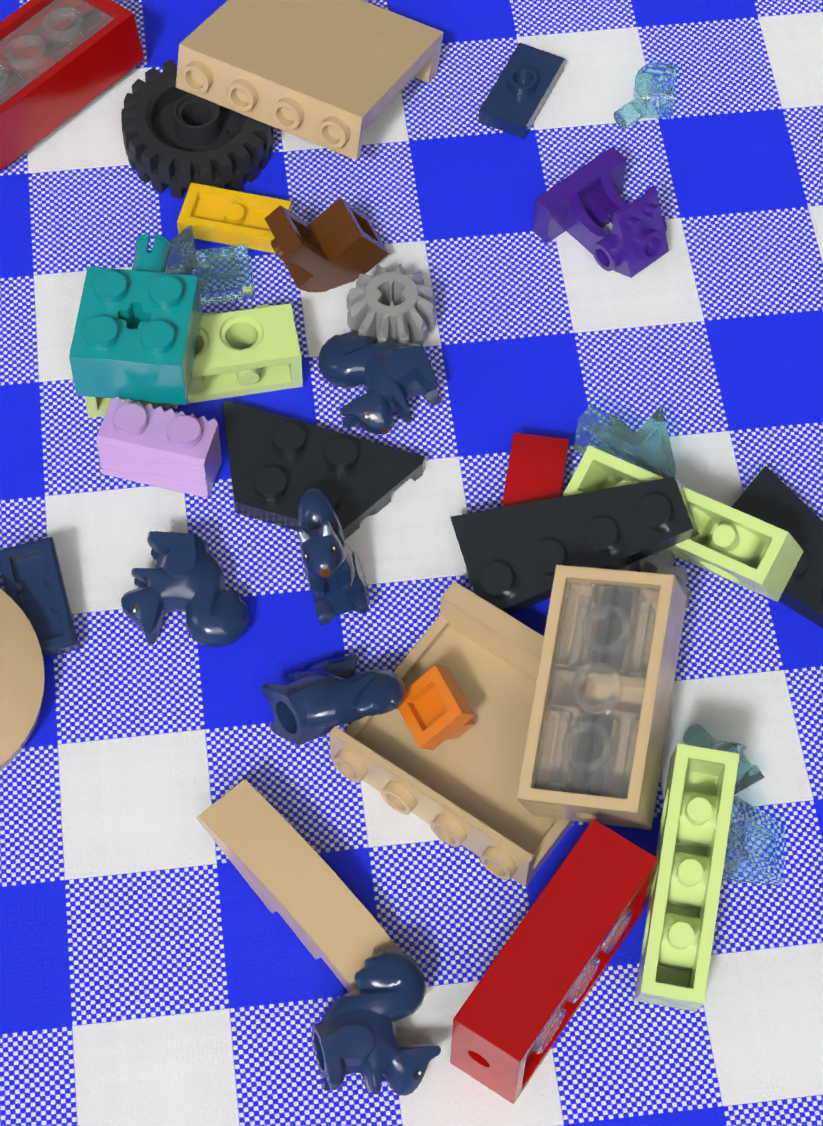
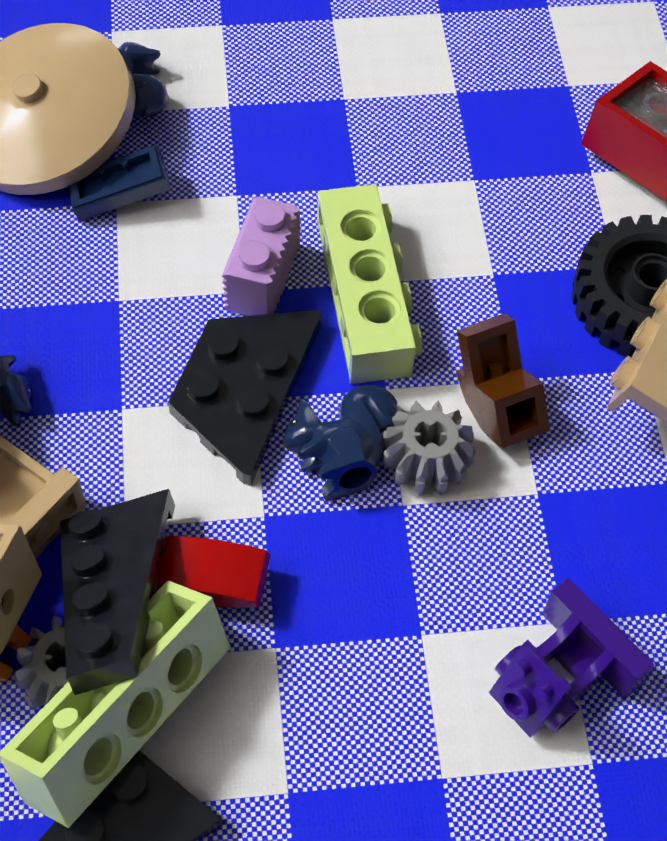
camera: 90 degrees right, 0 degrees up
(137, 330) = (359, 209): teal brick -> none
(185, 581) = (121, 286): dark blue animal -> none
(221, 271) = (470, 289): clear light blue slope -> none
(229, 216) = (542, 317): yellow plate -> none
(328, 561) = (118, 384): dark blue animal -> none
(647, 448) = (233, 681): clear light blue slope -> none

